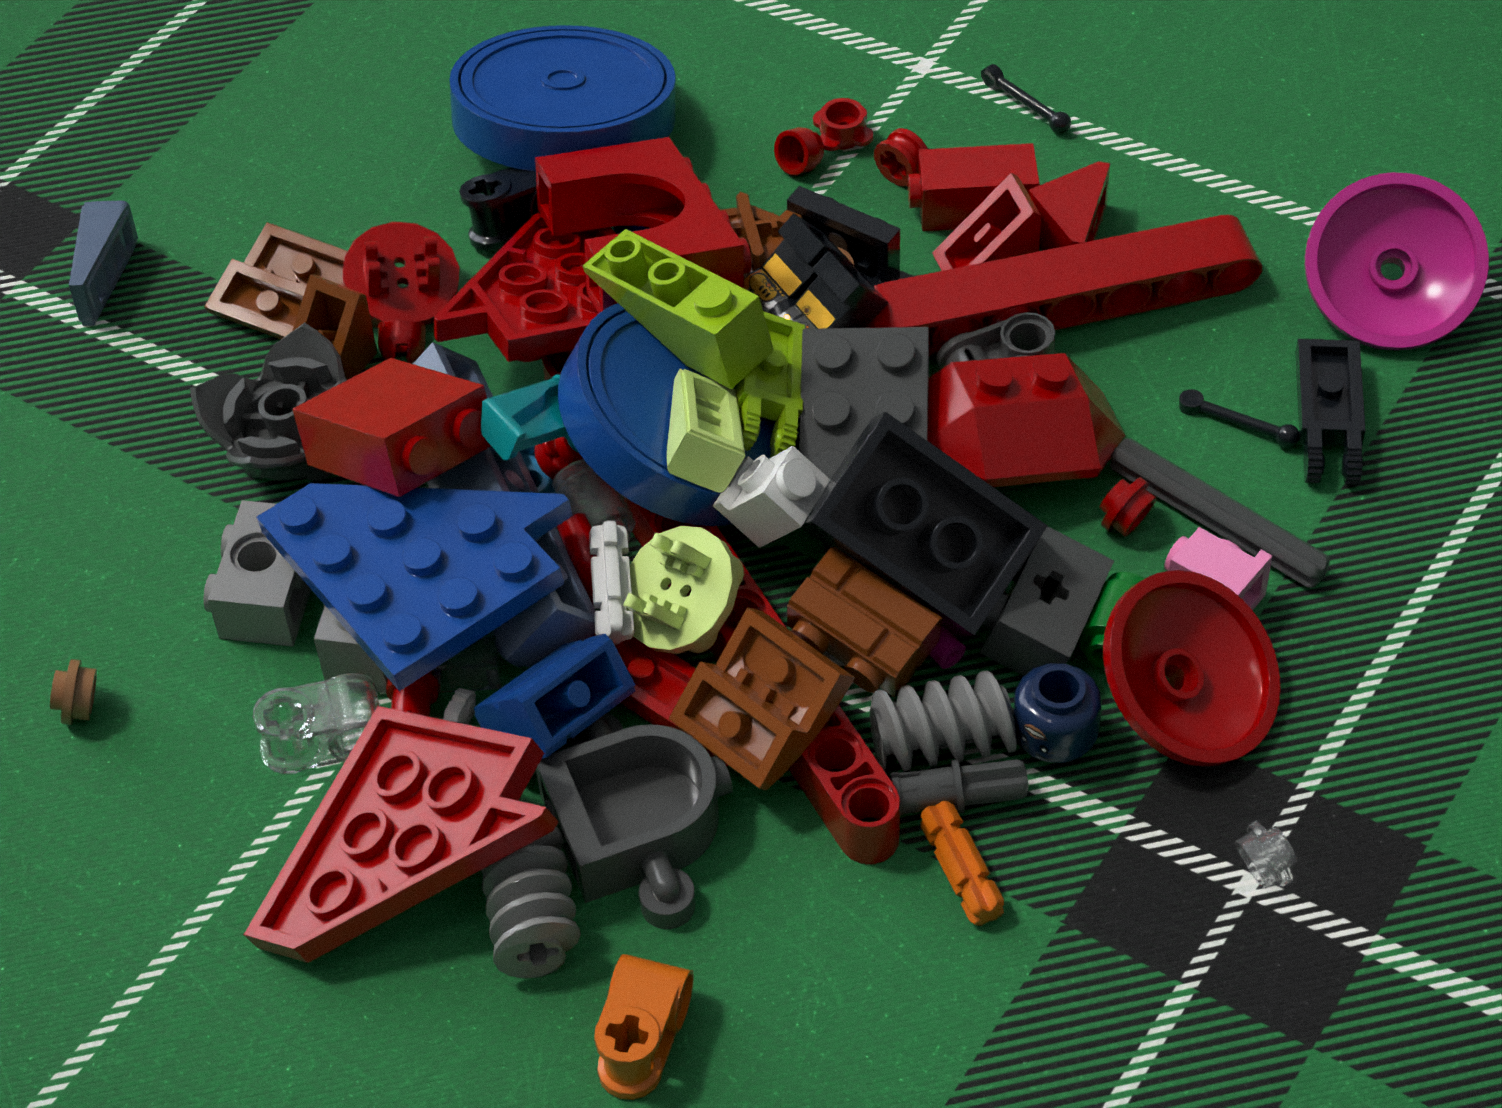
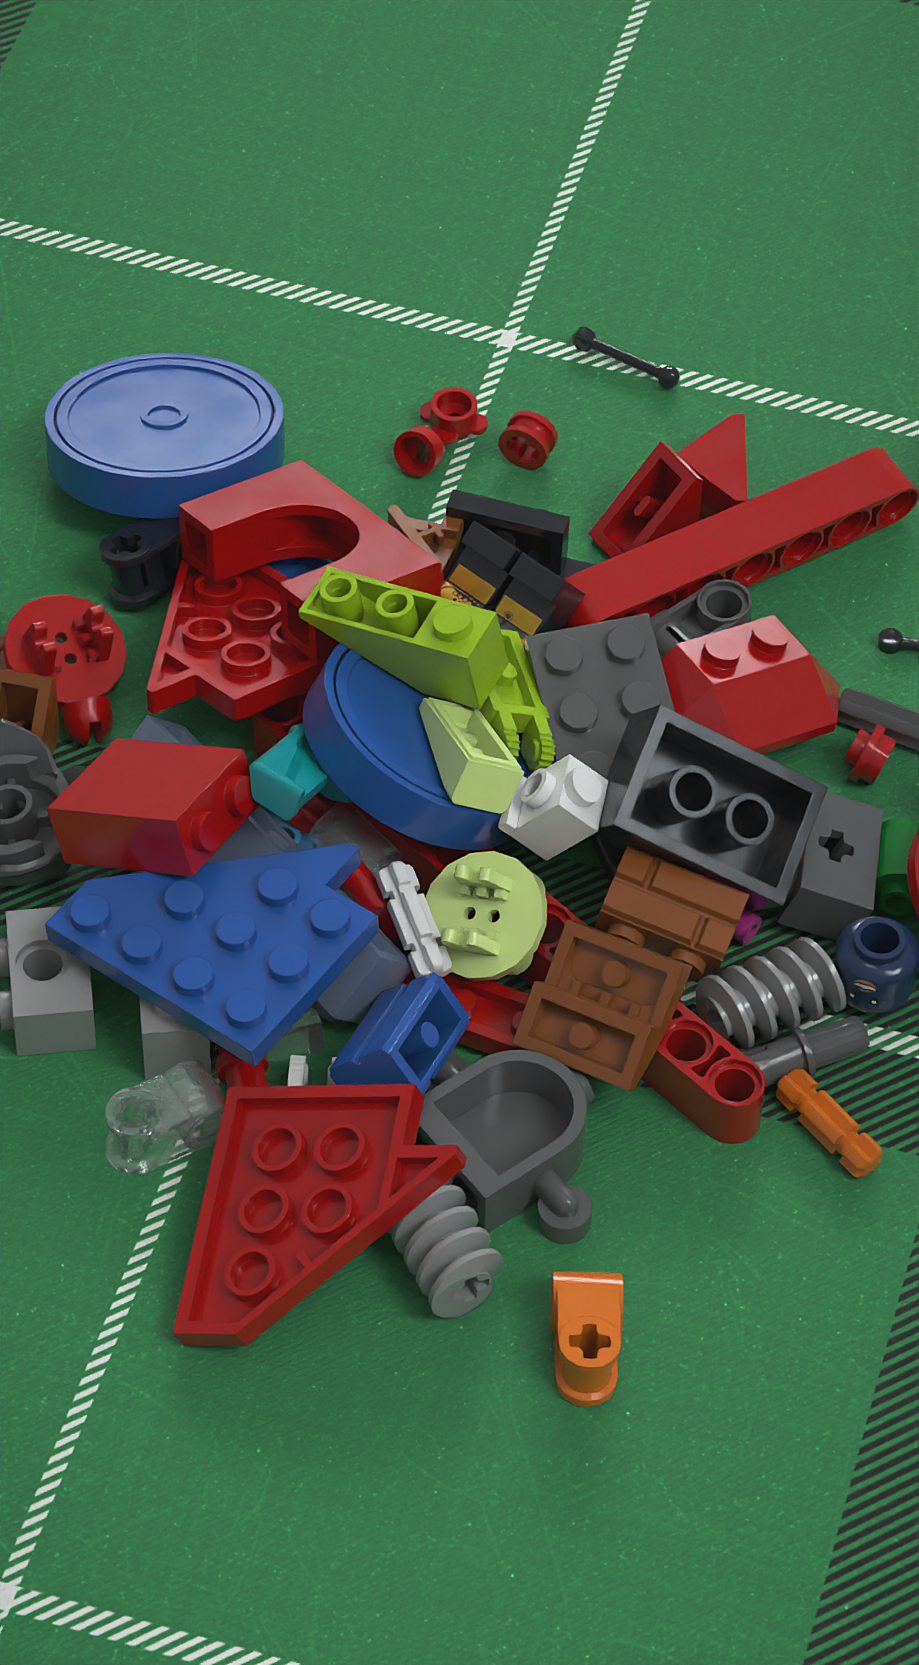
camera: 20 degrees left, 0 degrees up
(960, 178) = (598, 458): red brick -> none

